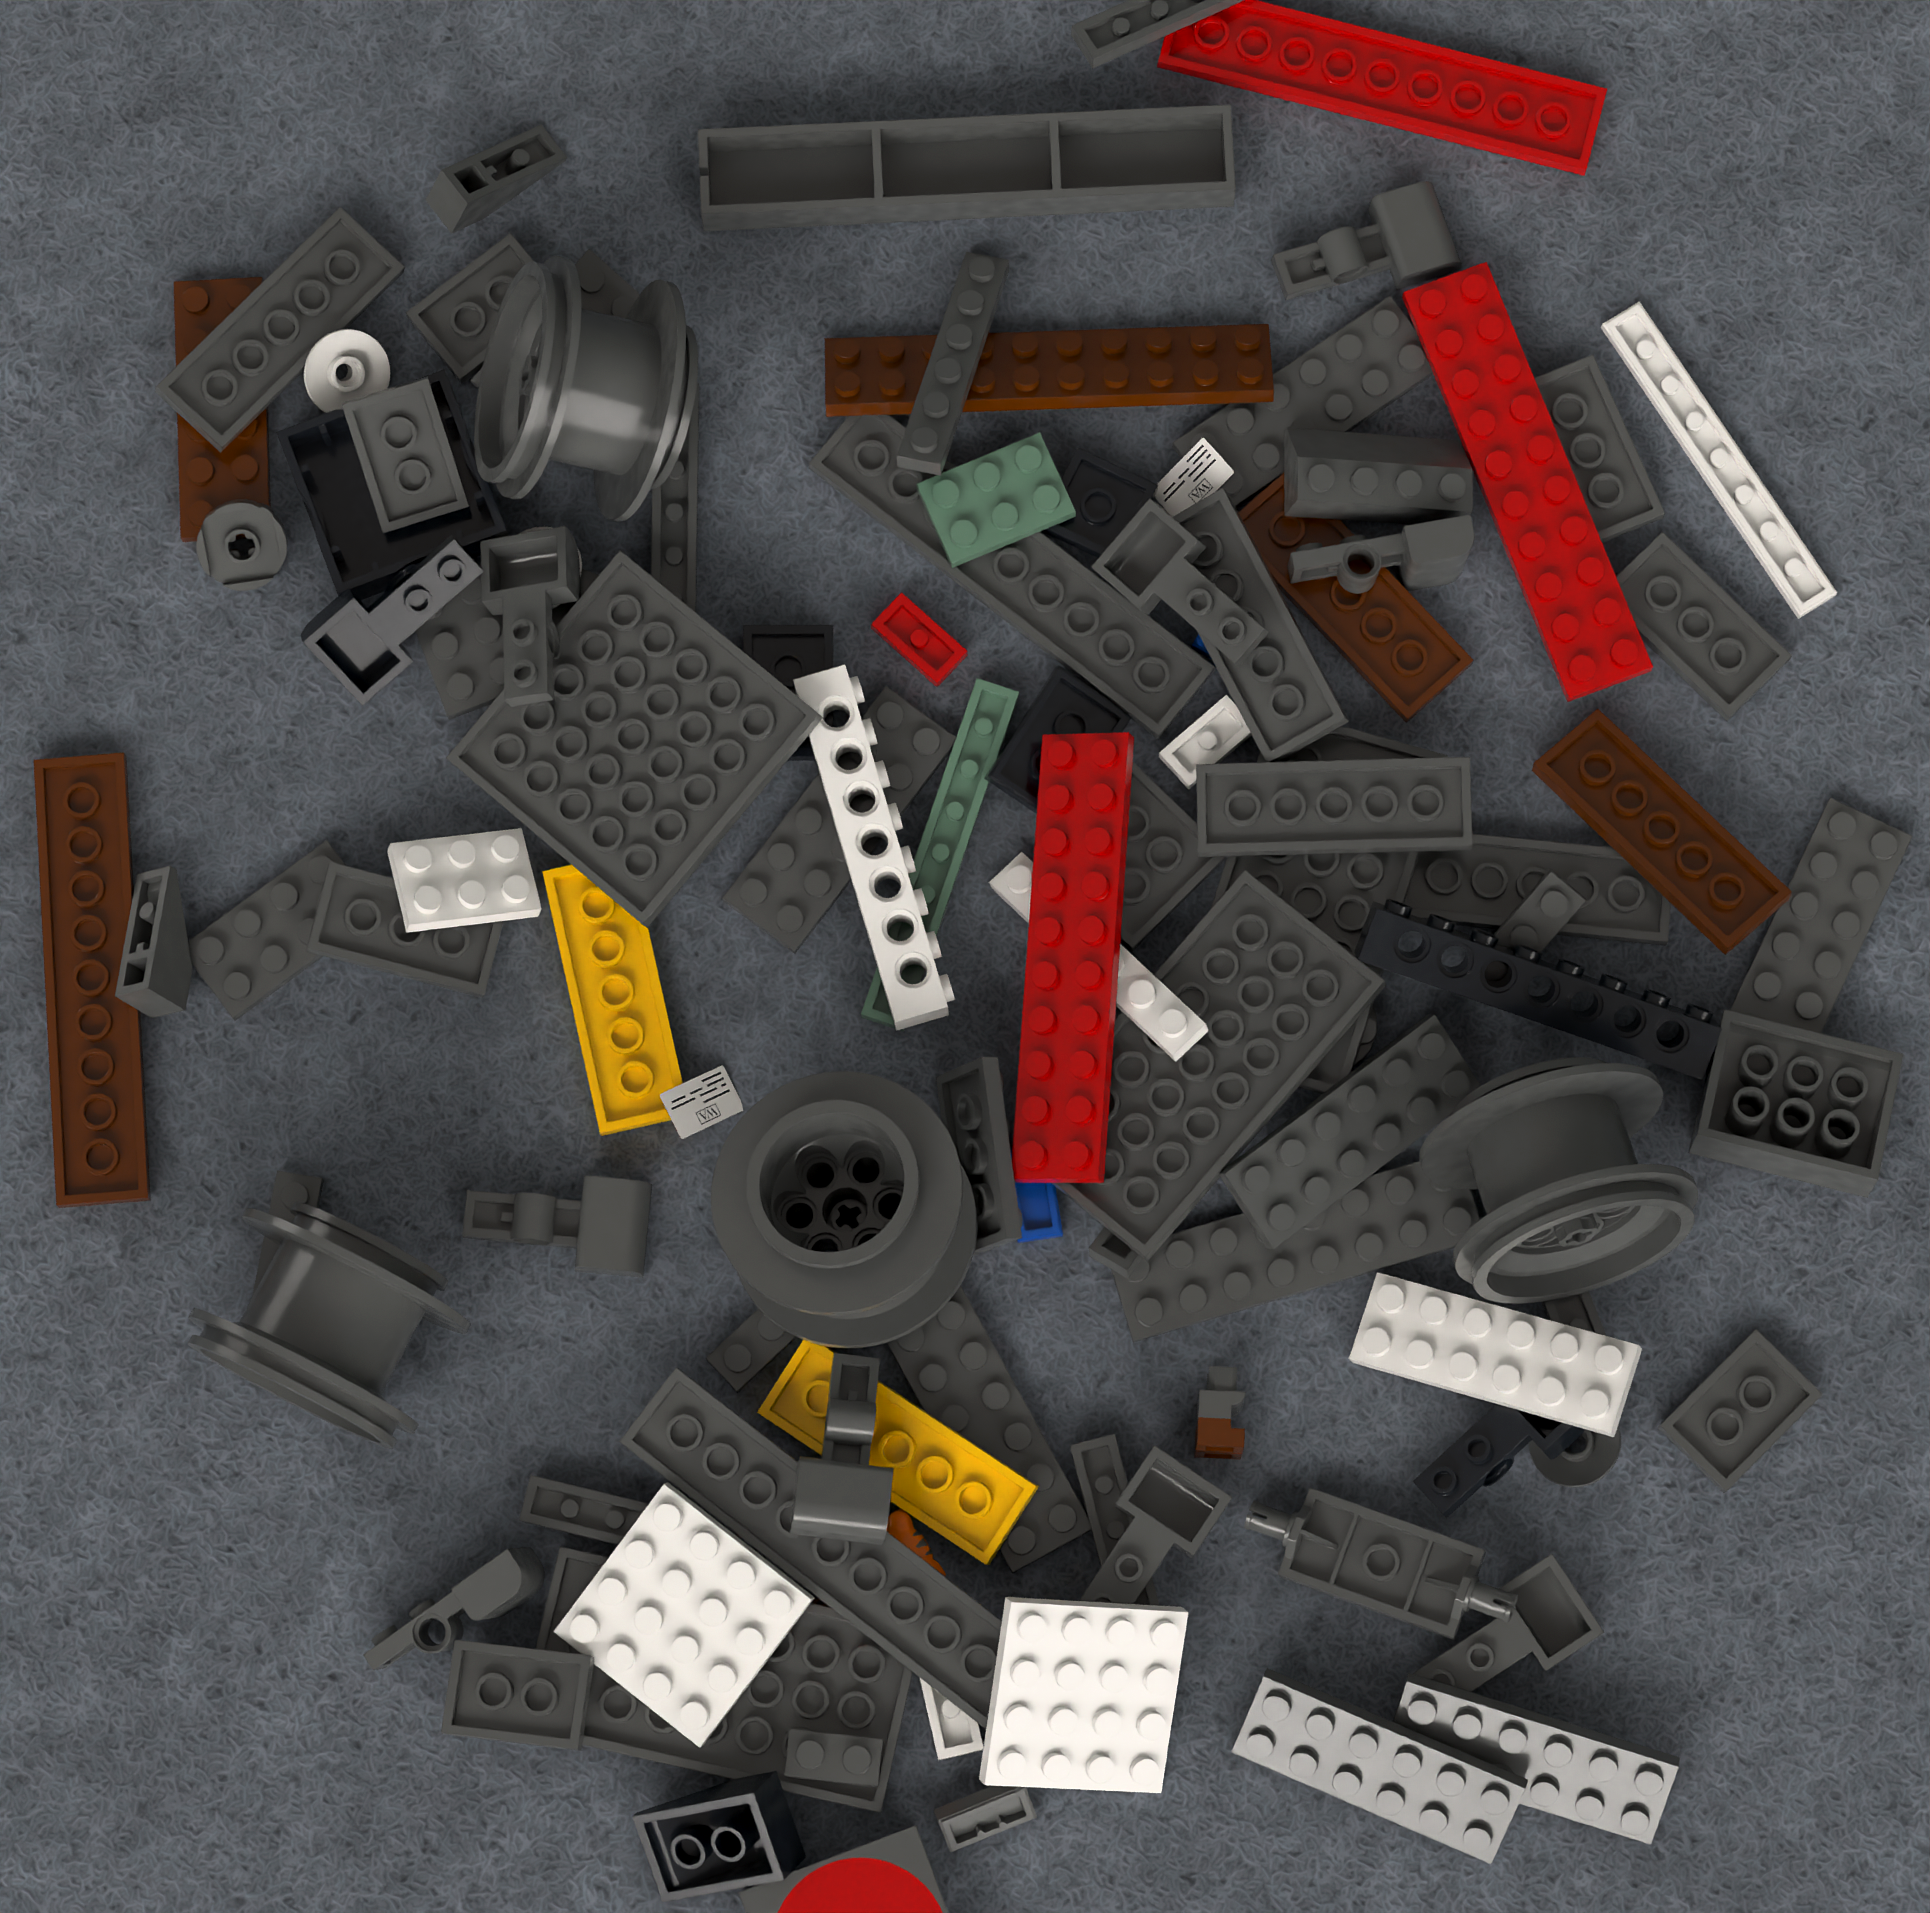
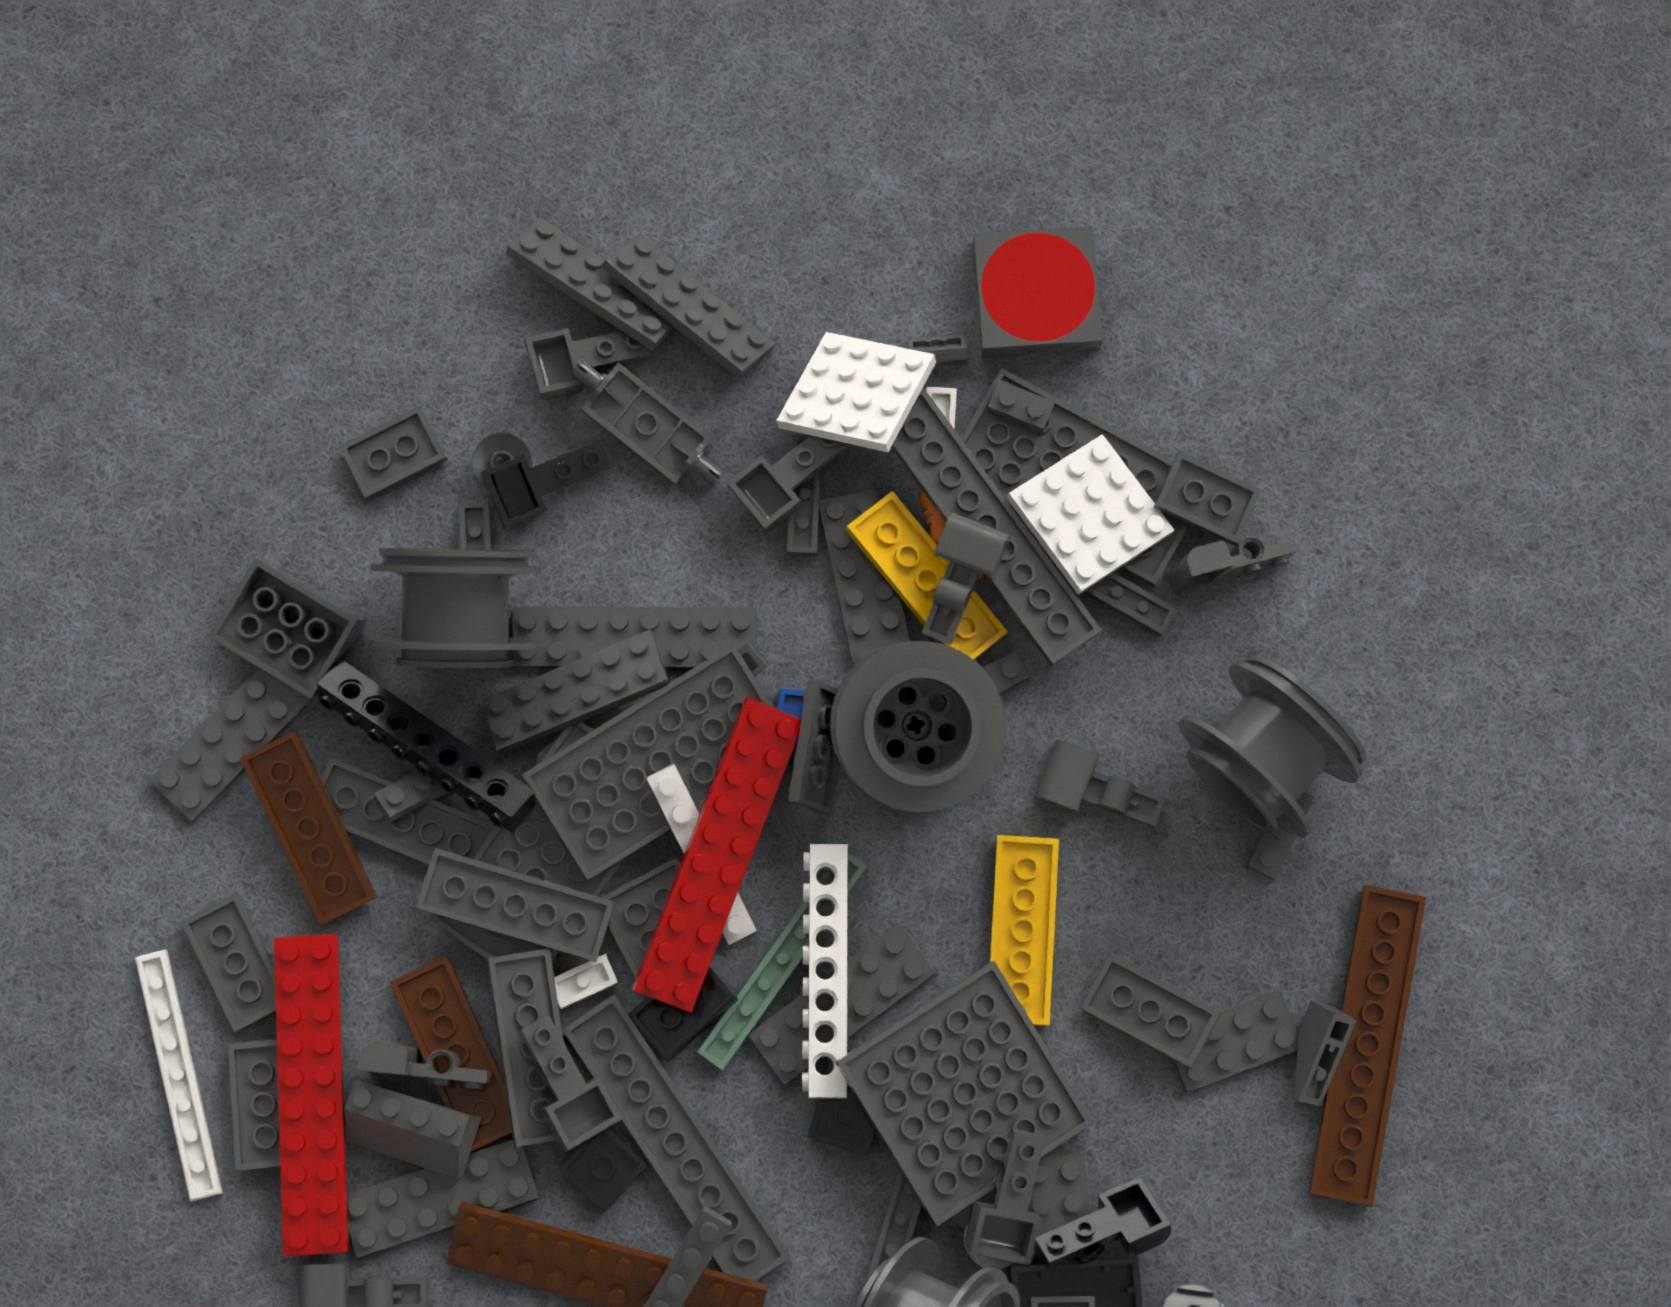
camera: 165 degrees left, 0 degrees up
(464, 880) = (1103, 1032): white plate -> none
(701, 1102) = (987, 840): white sticker -> none
(721, 1838) = (1103, 378): black slope -> none
(919, 639) = (752, 1110): red plate -> none
(996, 500) = (670, 1188): sand green plate -> none
(1193, 478) = (534, 1165): white sticker -> none
(1213, 1416) = (720, 541): hips -> none
(1496, 1354) = (534, 523): white plate -> none

